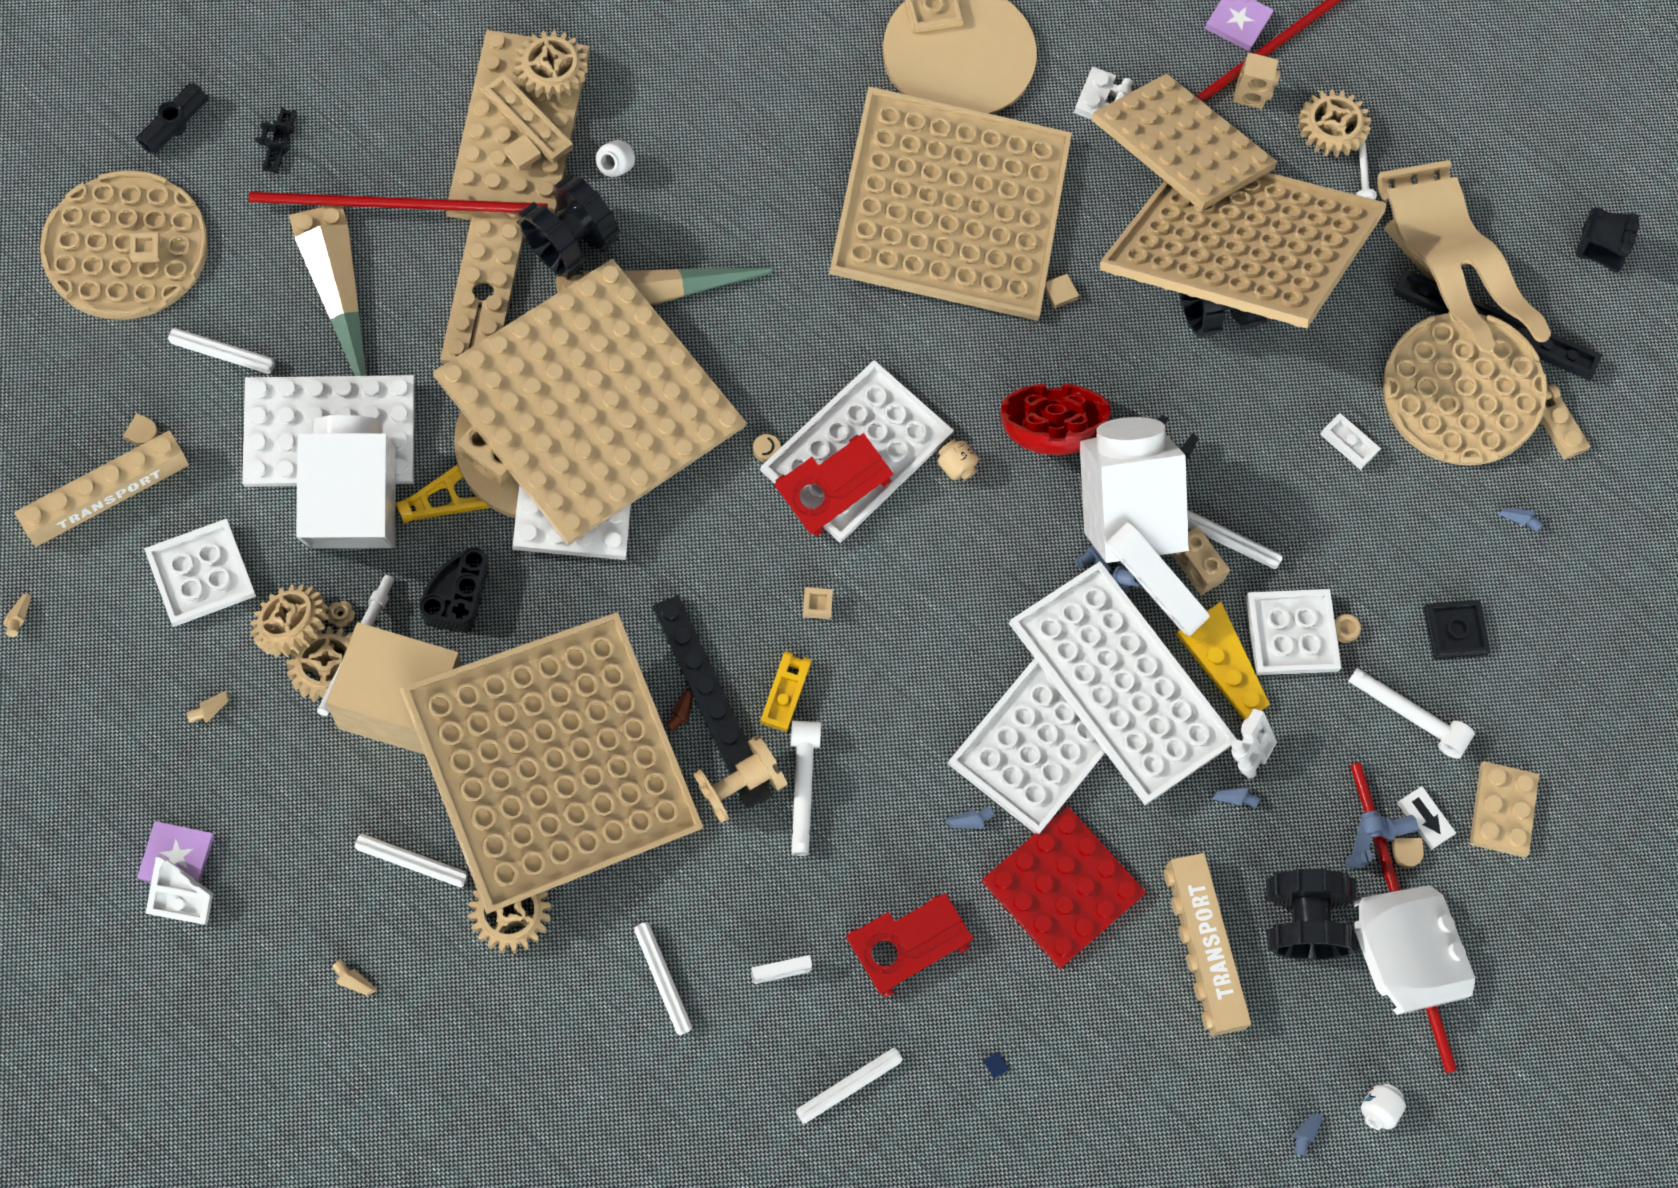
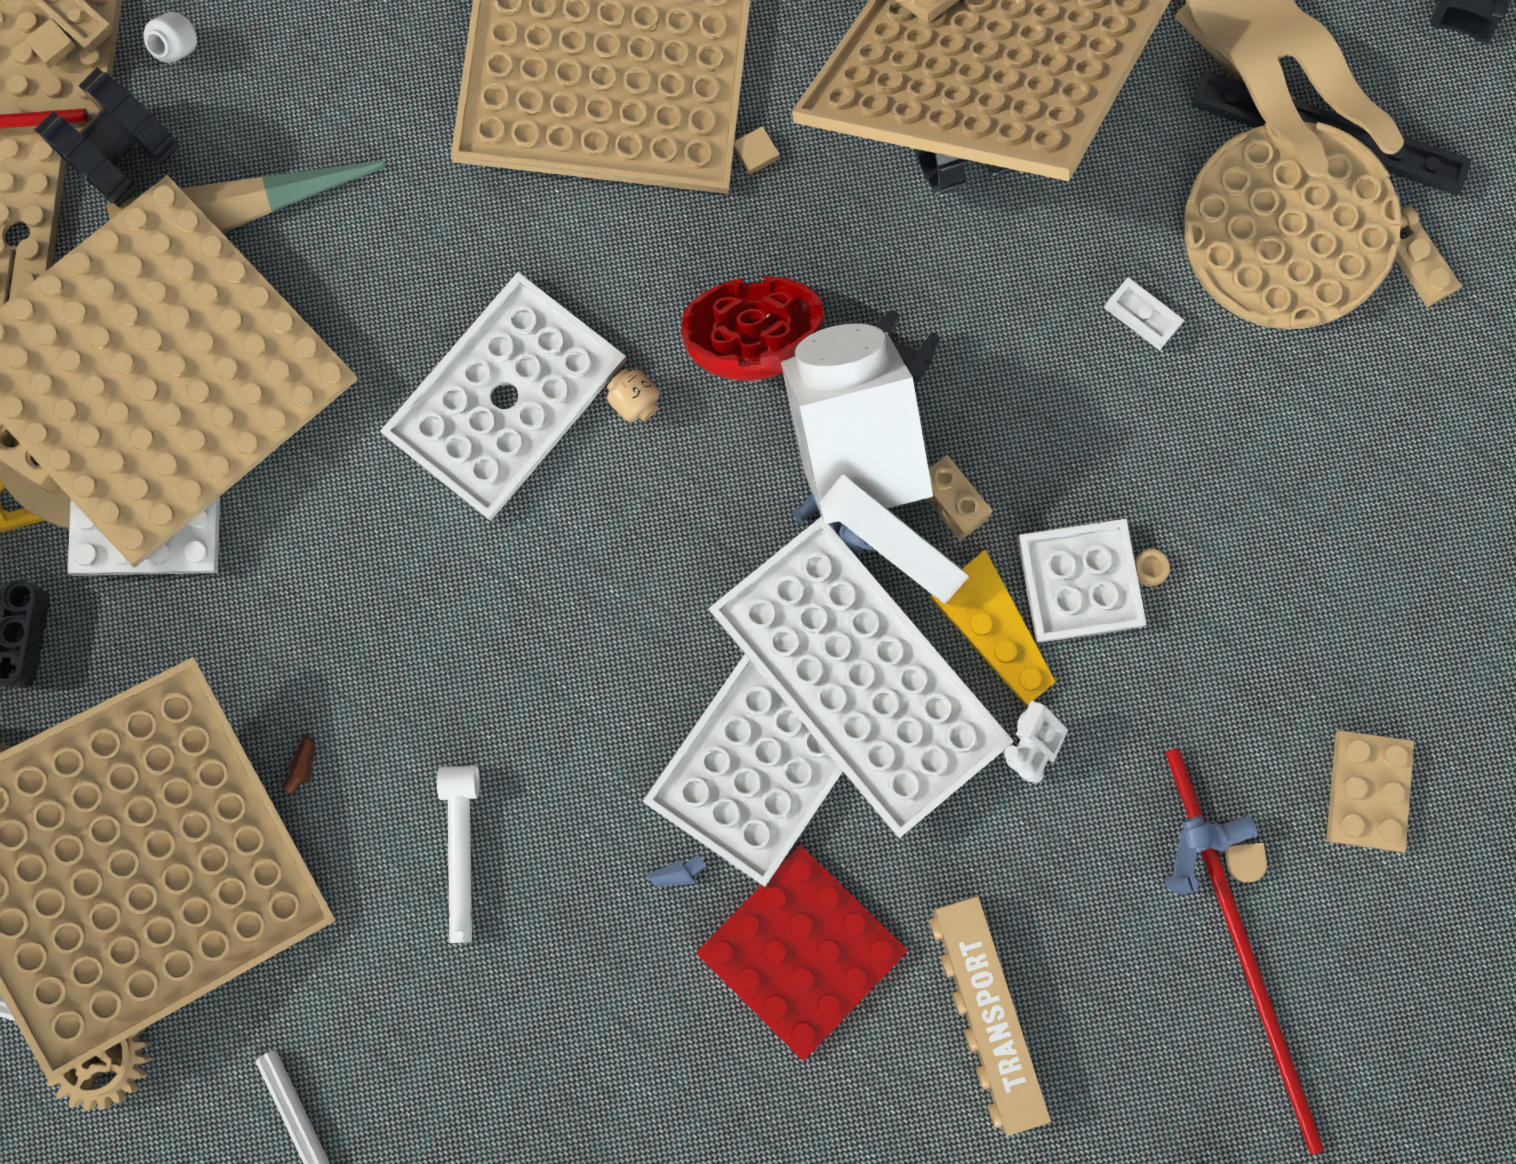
camera: 10 degrees right, 10 degrees up
(707, 692) = (338, 749): black plate -> none
(749, 773) = (384, 848): tan piece -> none
(765, 447) = (387, 402): tan tile -> none
(781, 969) = (444, 1100): white tile -> none
(785, 692) = (430, 727): yellow plate -> none
(817, 603) = (464, 605): tan plate -> none
(842, 477) = (481, 439): red piece -> none
(919, 939) = (616, 1042): red piece -> none
(1234, 540) = (994, 463): white axle -> none
(1237, 796) = (1019, 809): sand blue bar -> none
(1311, 897) = (1122, 974): black piece -> none
(1413, 948) = (1257, 1002): white wedge -> none
(1431, 822) = (1269, 812): white tile -> none
(1453, 737) = (1298, 703): white piece -> none
(1457, 629) = (1296, 553): black tile -> none
(1522, 517) = (1375, 392): sand blue bar -> none

